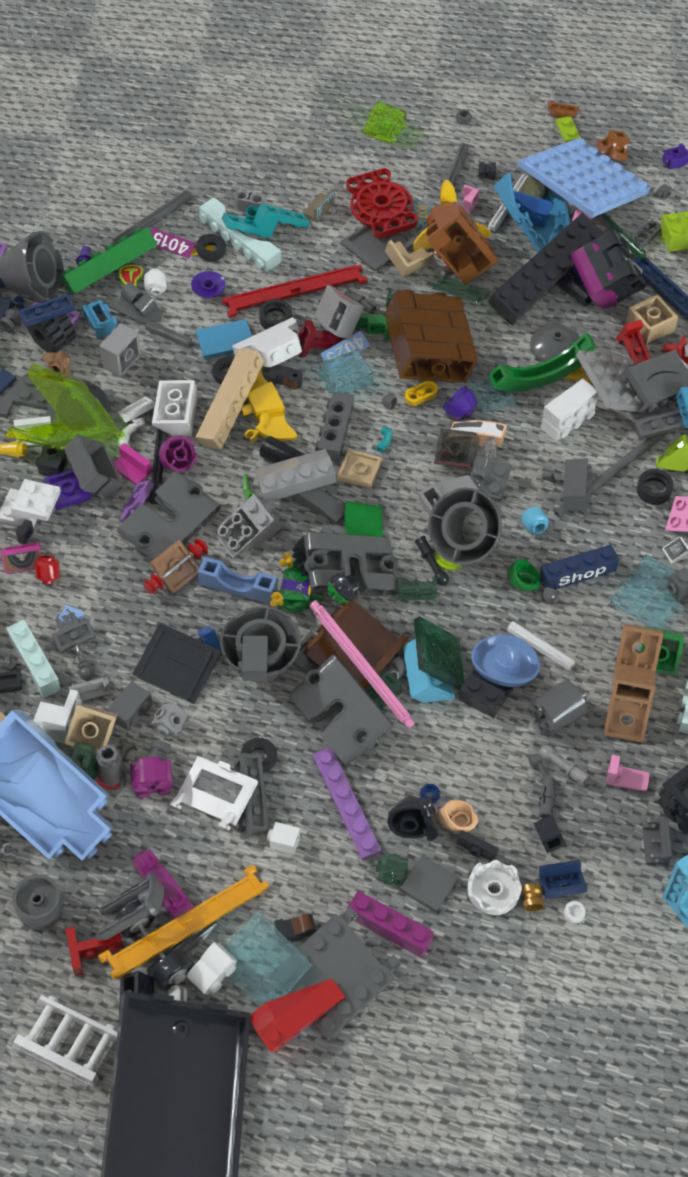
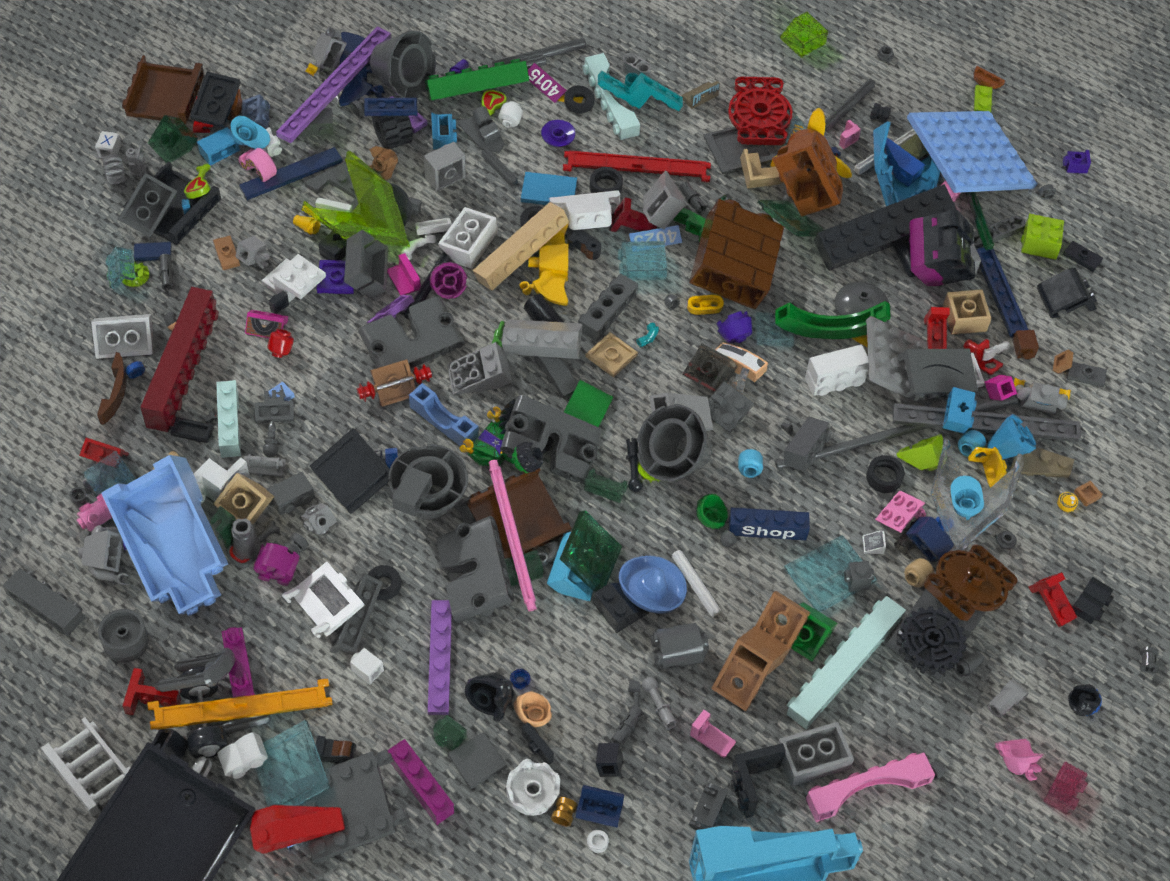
camera: 20 degrees right, 0 degrees up
(614, 145) = (1019, 129): dark orange brick -> none

